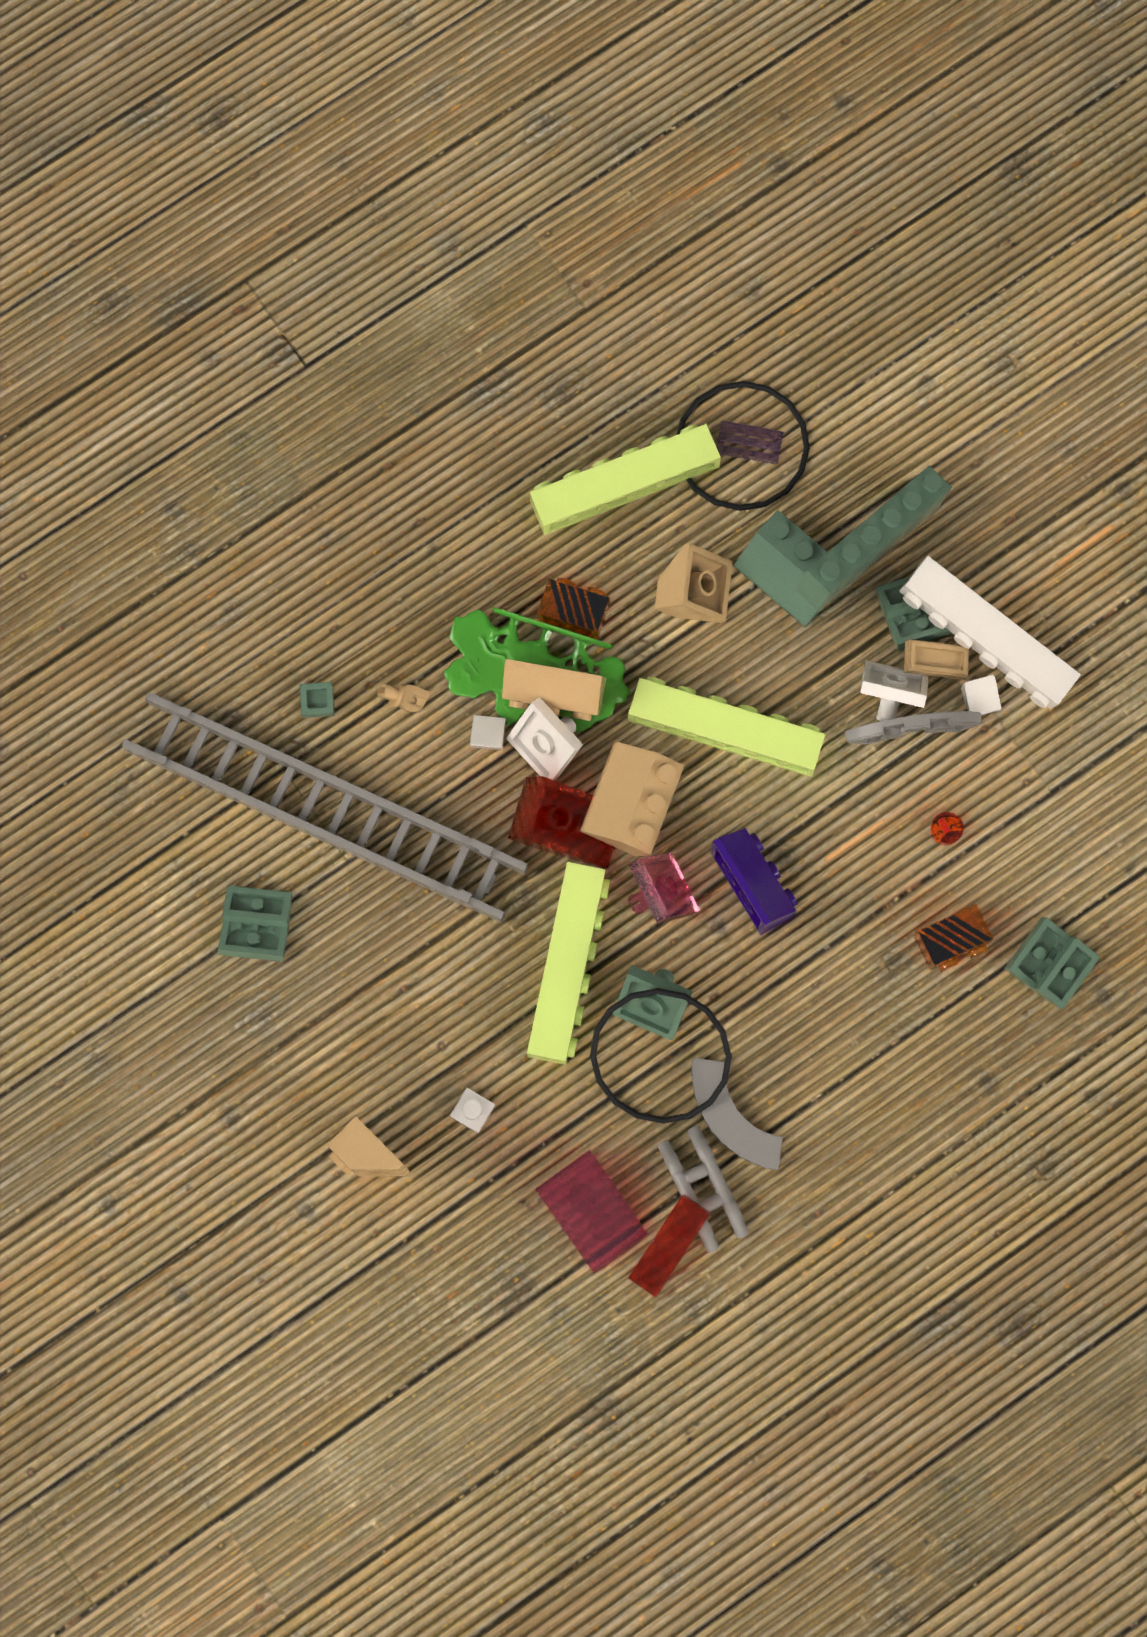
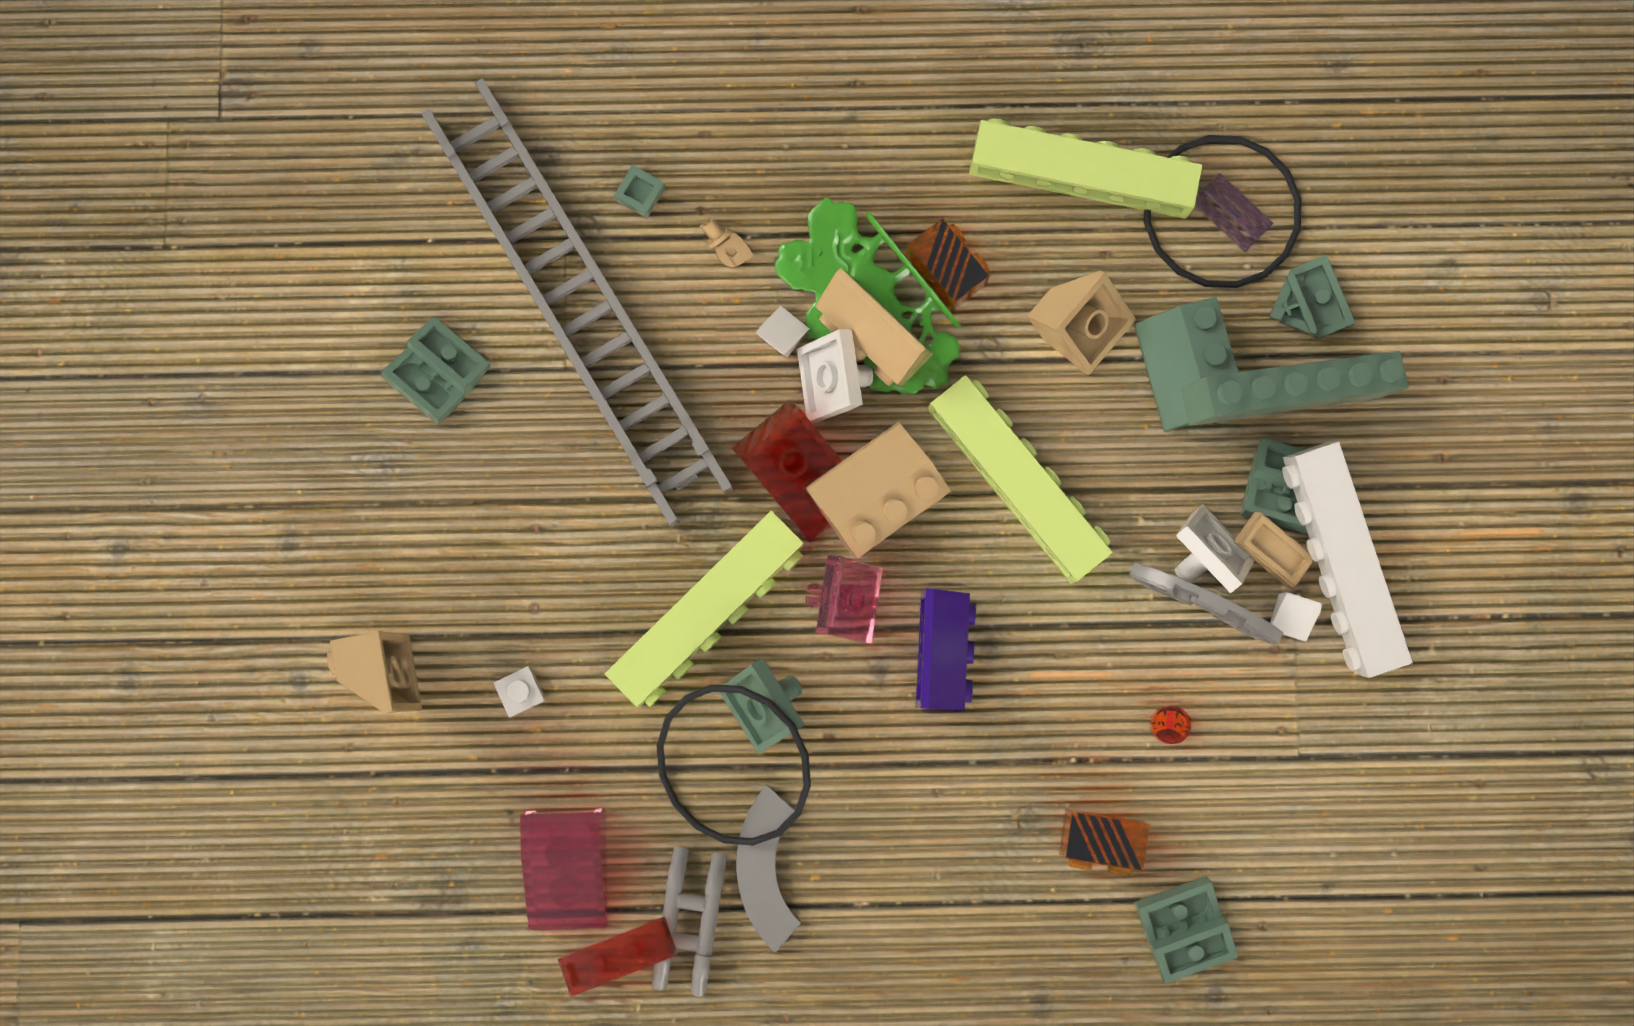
camera: 30 degrees right, 5 degrees up
(847, 468) = (1313, 300): none -> sand green slope

